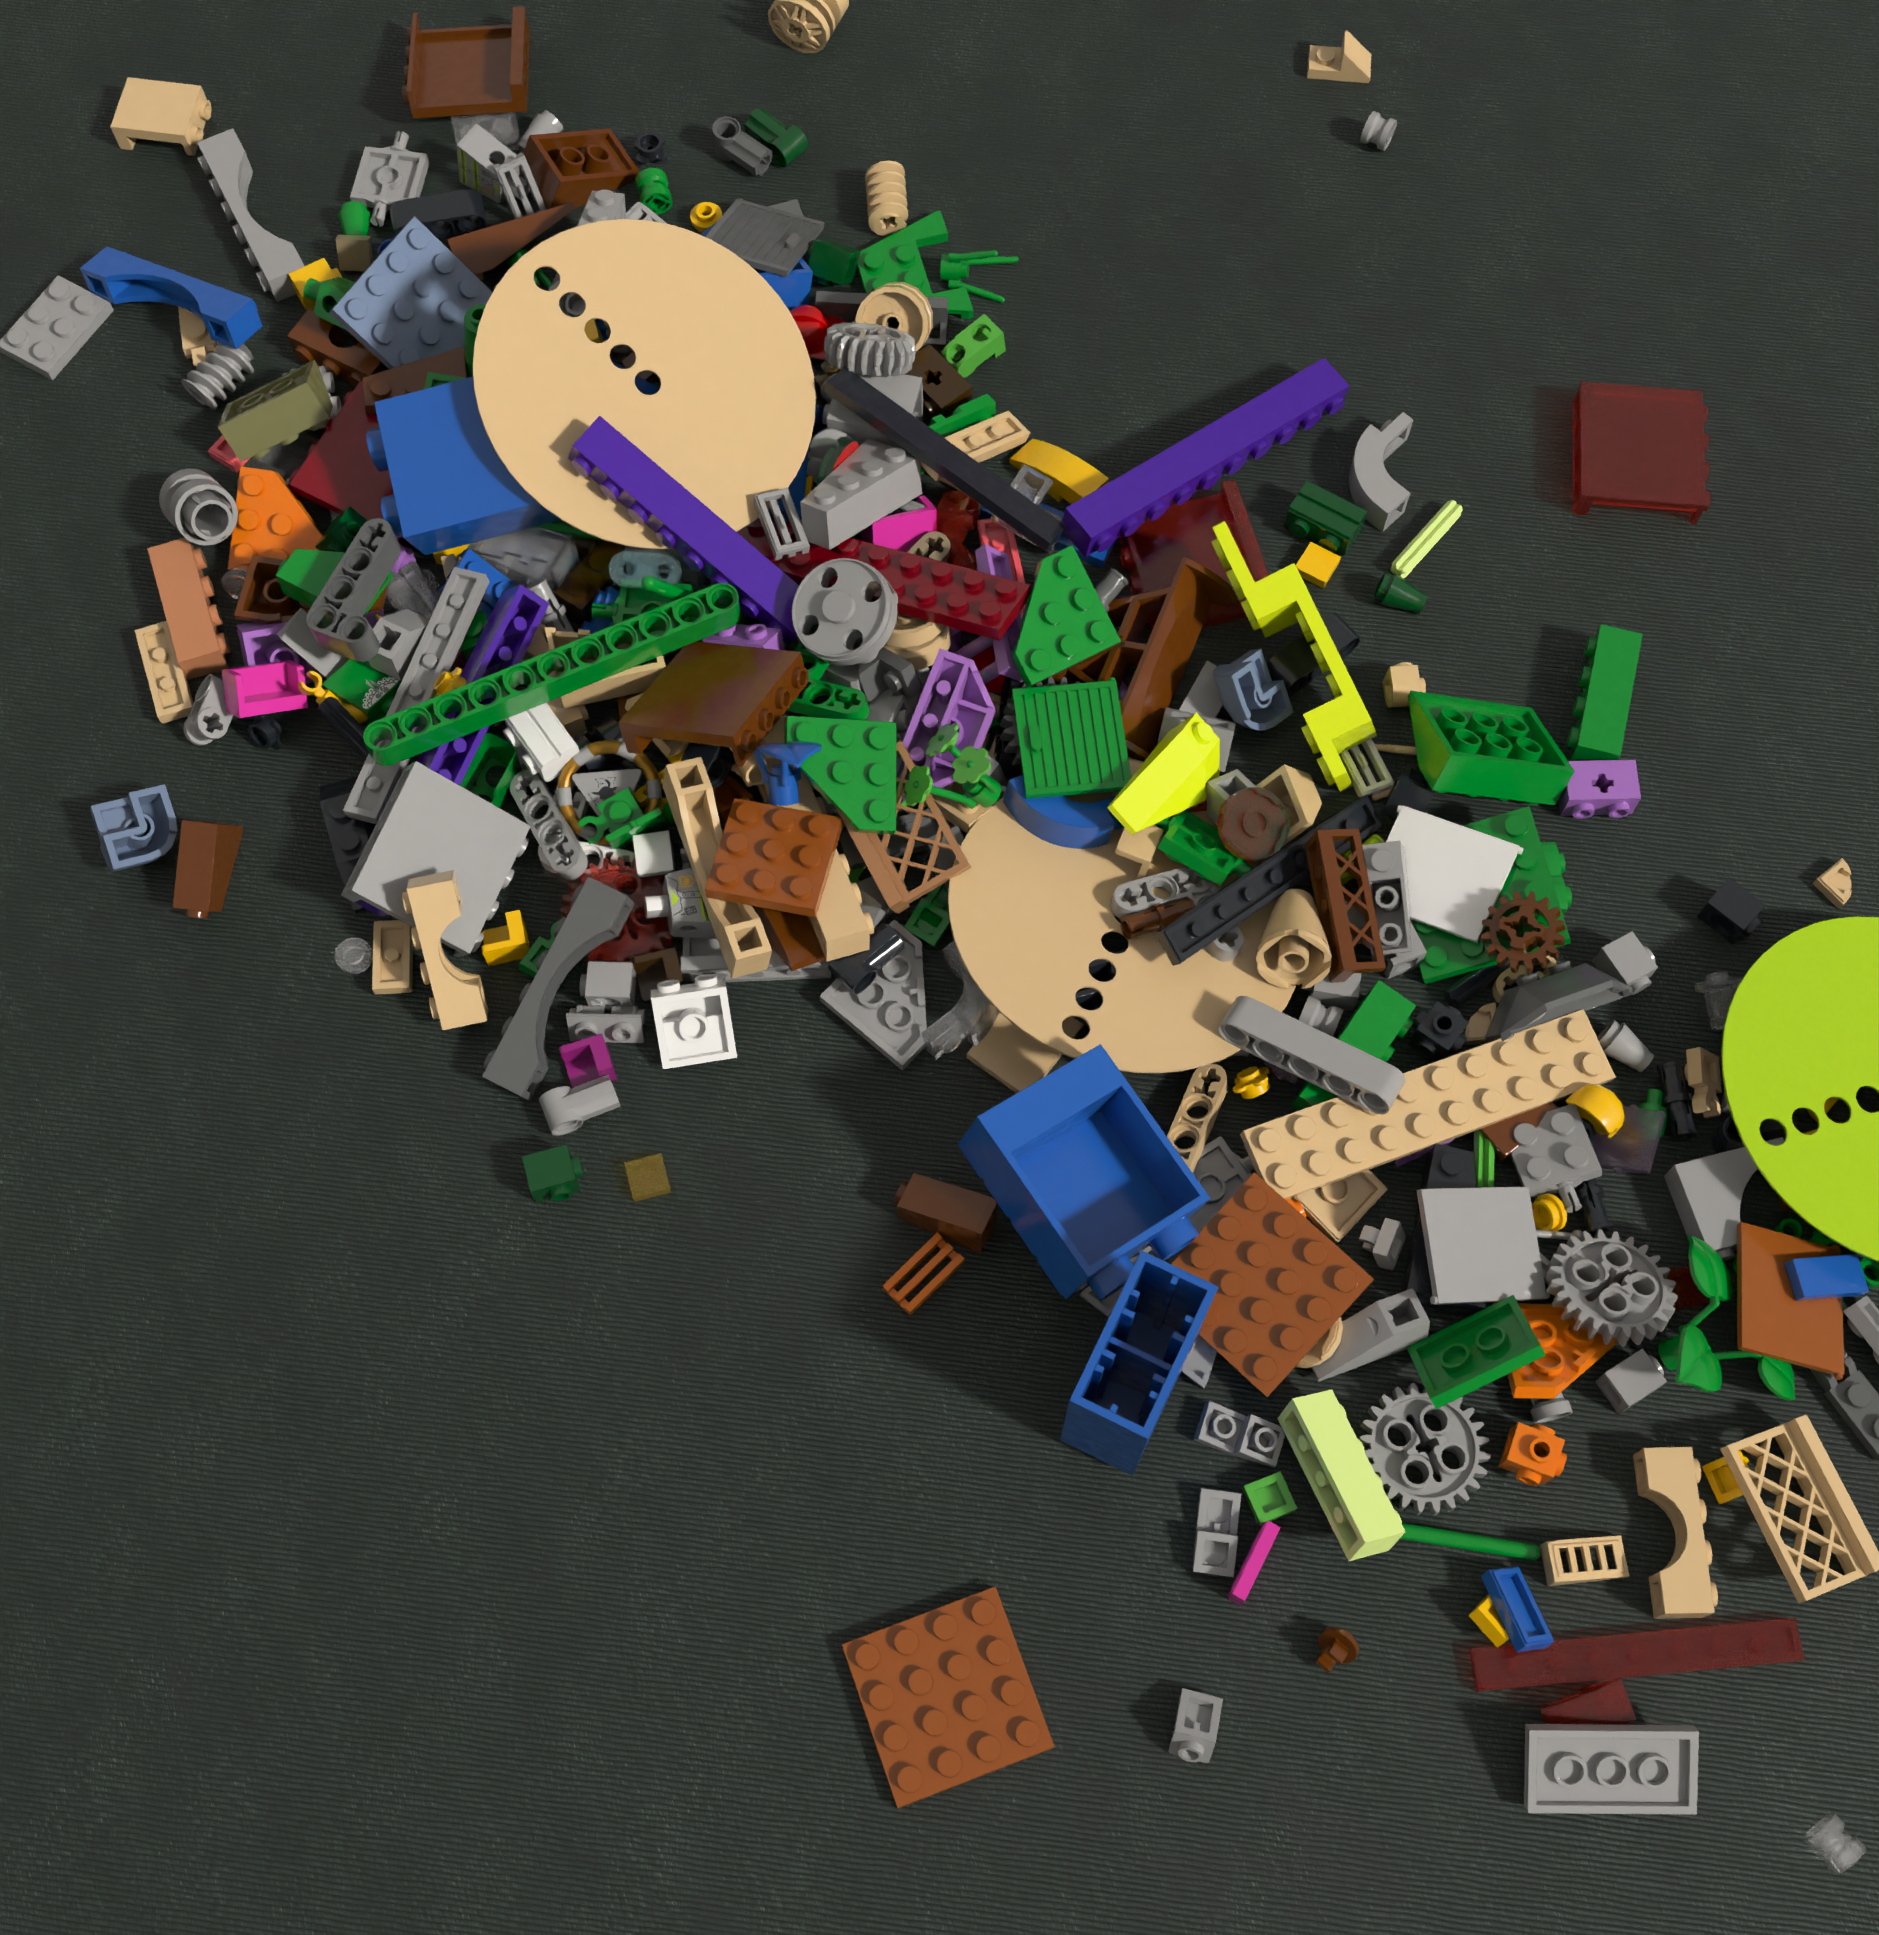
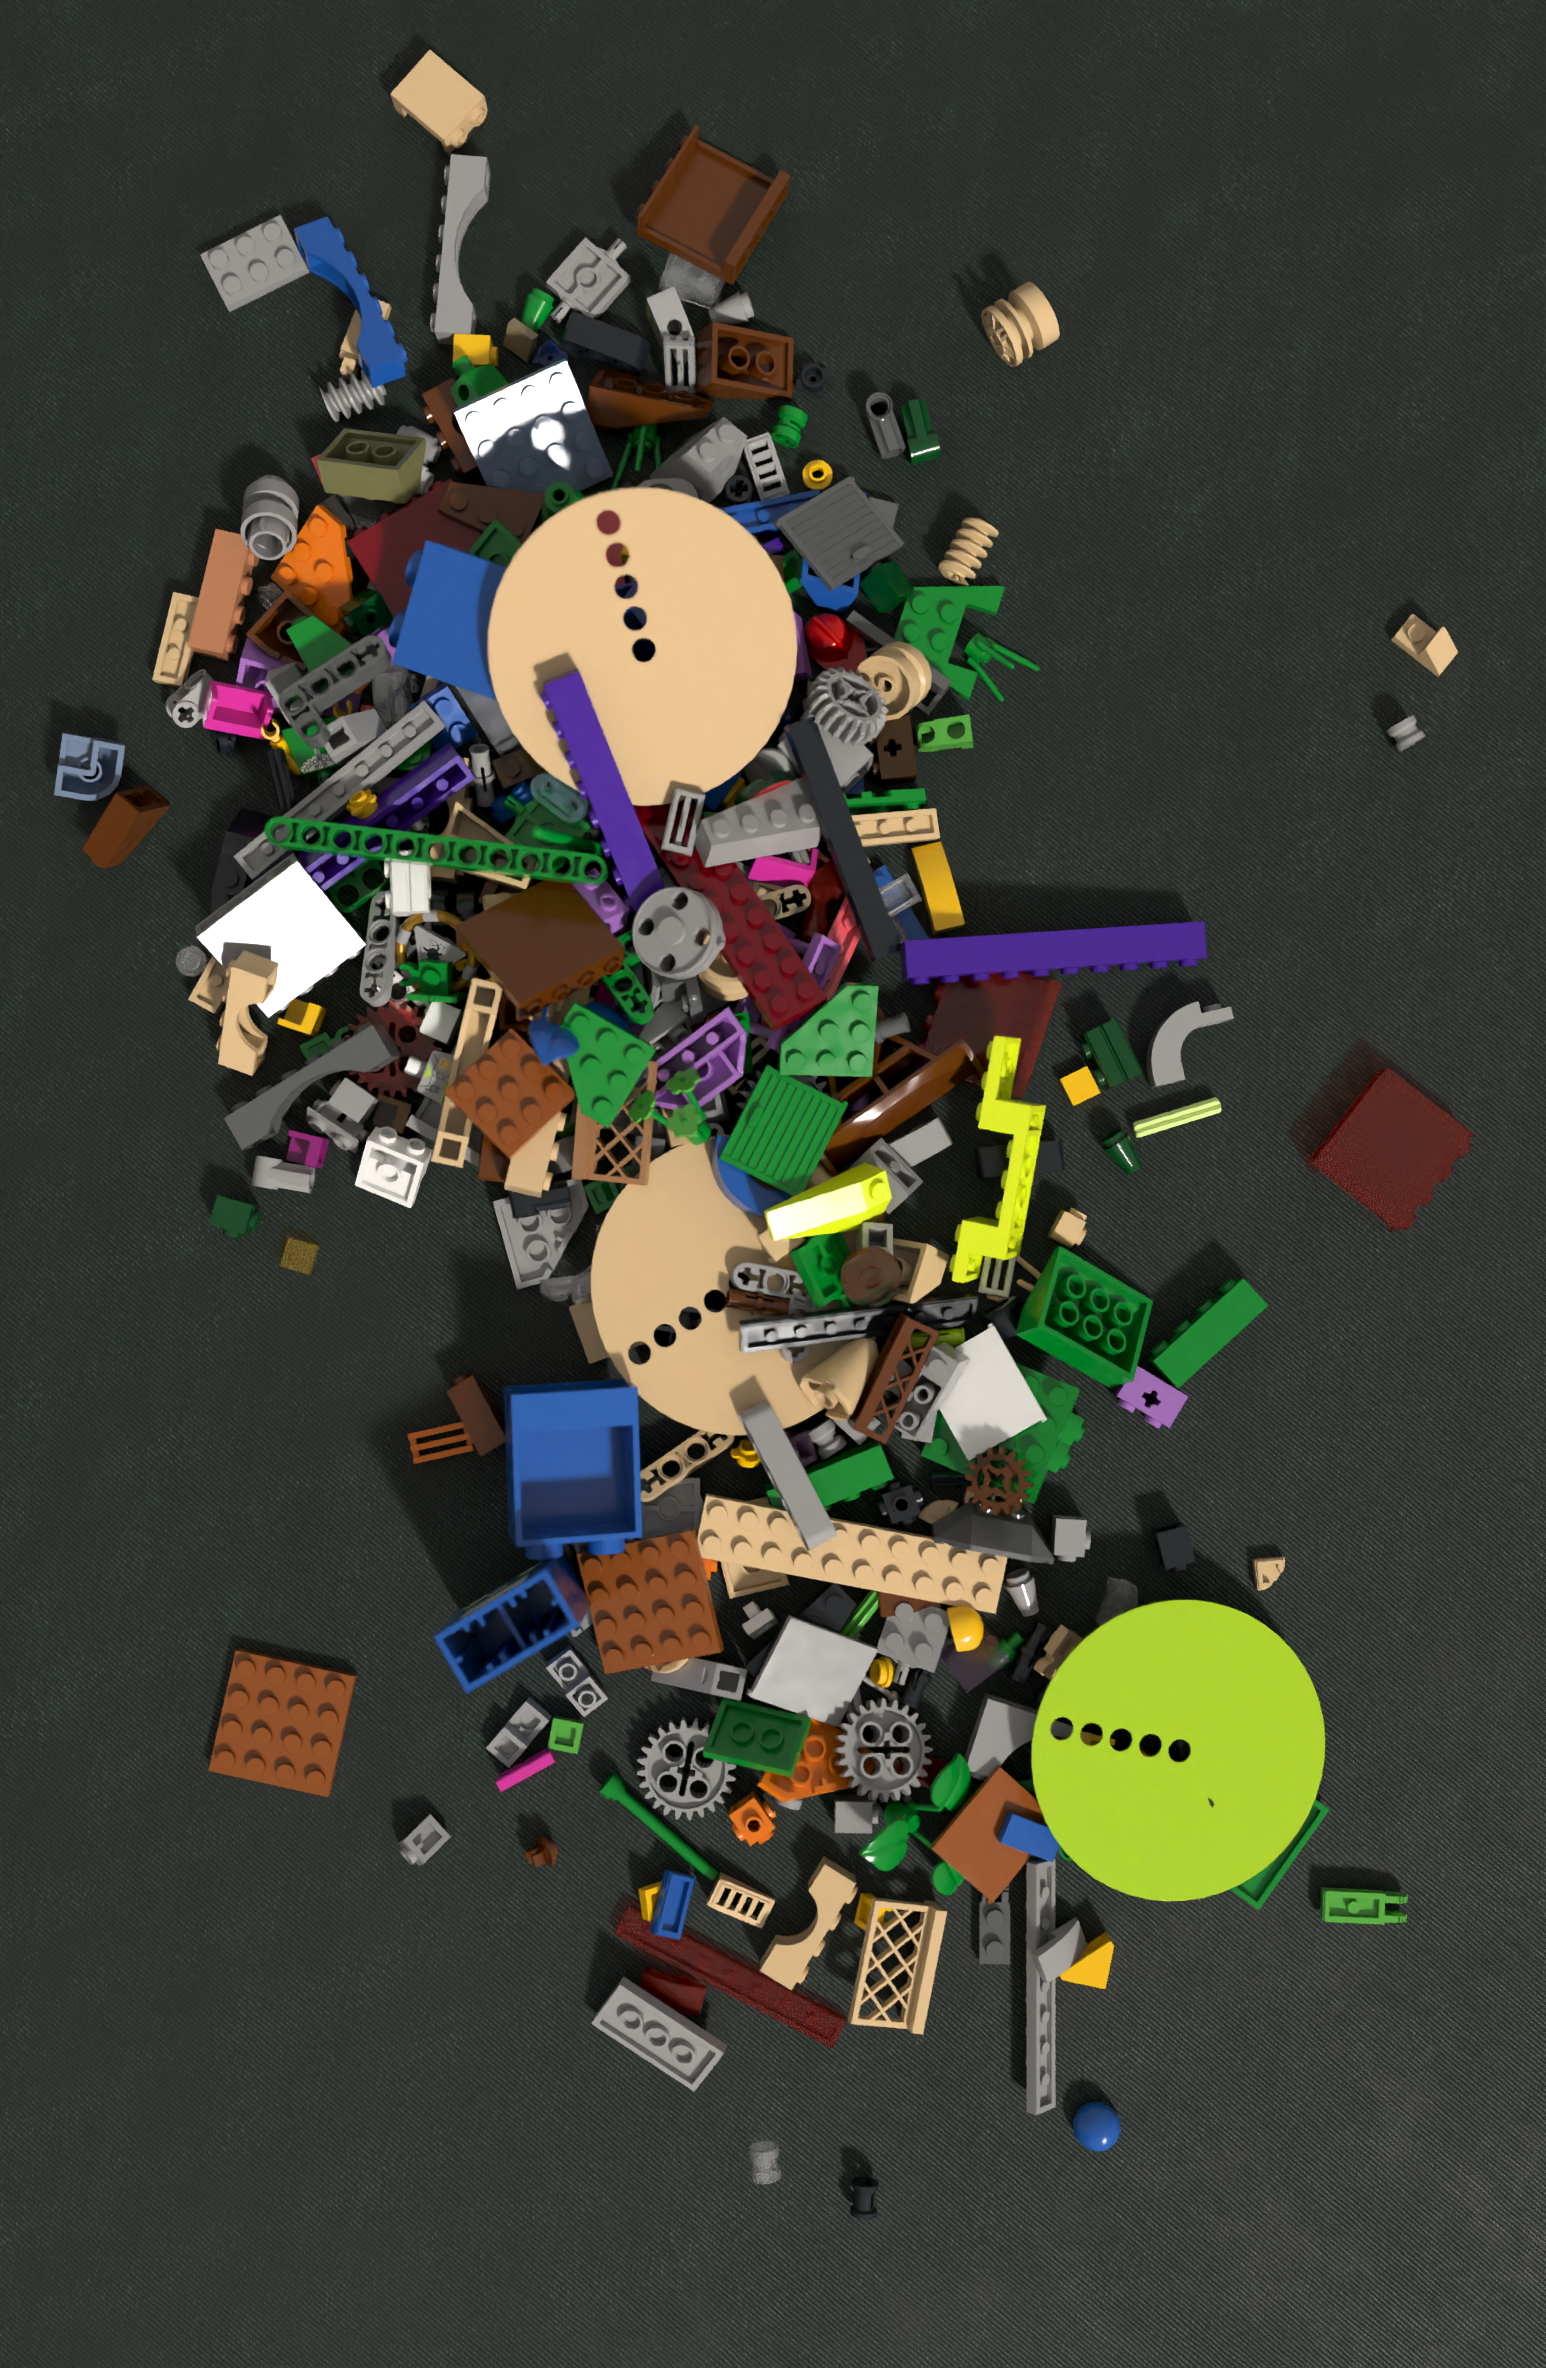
camera: 30 degrees right, 20 degrees up
(1250, 693) = (948, 1168): sand blue brick -> none
(1341, 1475) = (616, 1755): yellowish green brick -> none

